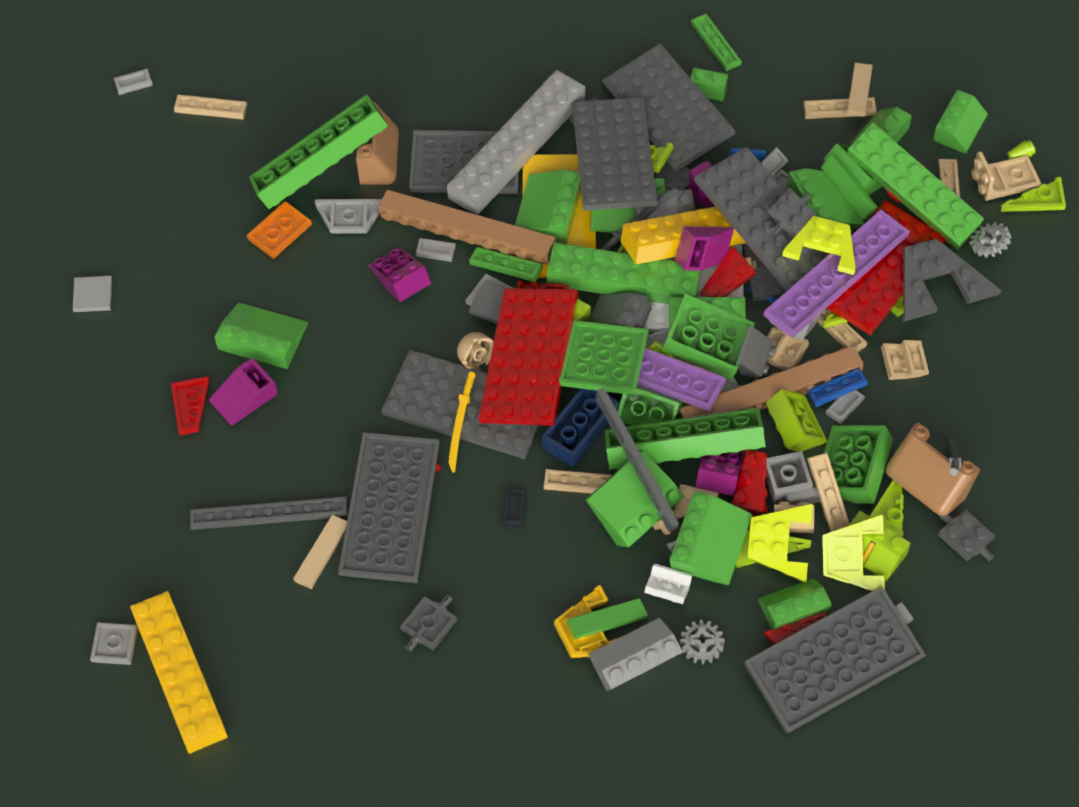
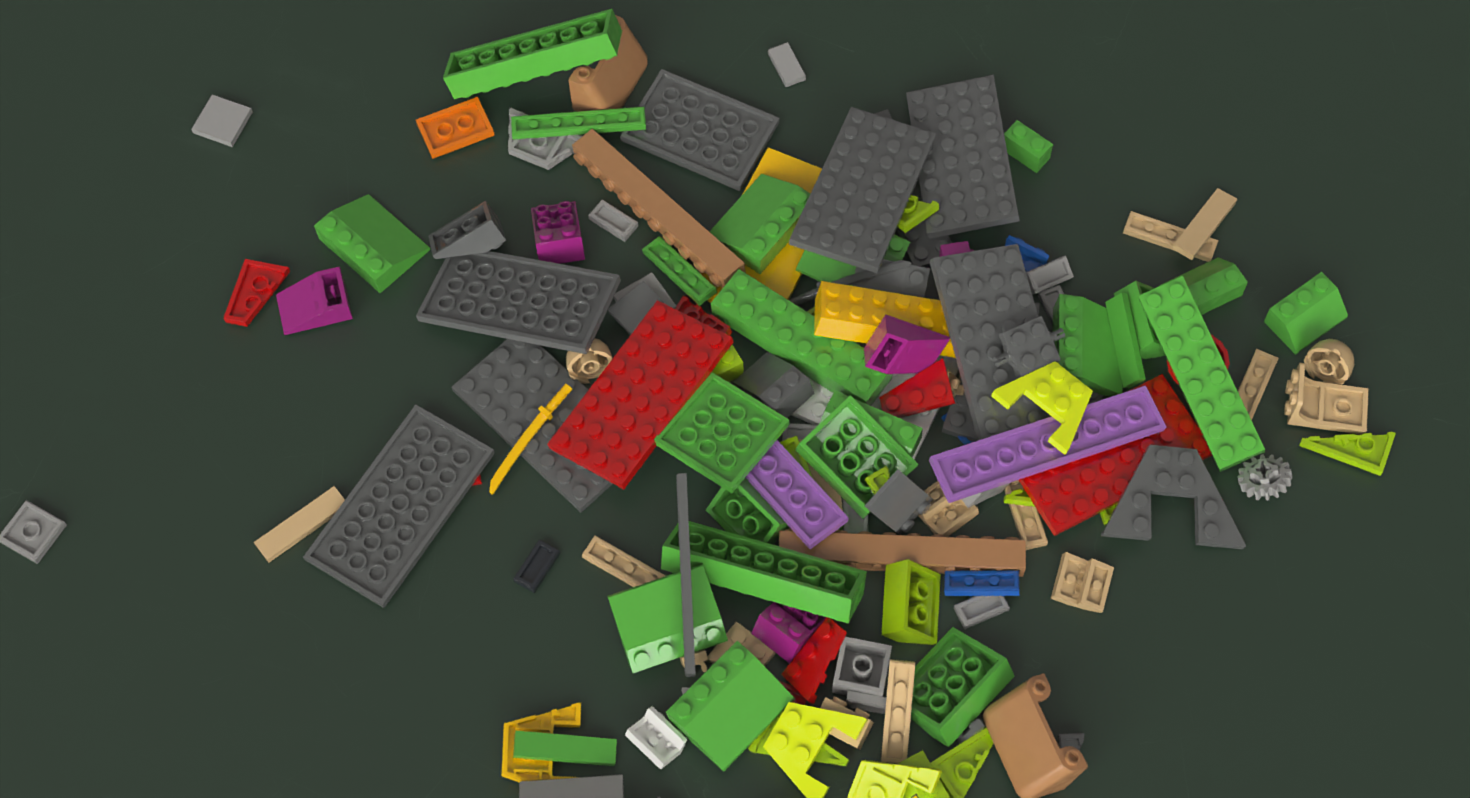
camera: 25 degrees right, 5 degrees up
(178, 672) = (75, 597): yellow brick -> none
(268, 513) = (270, 453): dark grey tile -> none
(336, 297) = (468, 234): none -> dark grey slope
(373, 190) = (578, 122): none -> bright green tile
(400, 327) = (520, 299): none -> dark grey plate
(428, 623) = (368, 661): dark grey plate -> none
(503, 93) = (786, 65): none -> light grey tile
(515, 143) = (763, 130): light grey brick -> none
(576, 427) = (652, 501): dark blue brick -> none
(716, 42) = (1065, 98): bright green tile -> none
(734, 344) = (878, 479): none -> lime tile
(885, 484) = (975, 727): none -> dark grey tile
(955, 459) = (1059, 744): dark grey sword -> none
(995, 146) = (1330, 361): none -> tan cylinder
(1023, 149) = (1365, 379): lime cone -> none

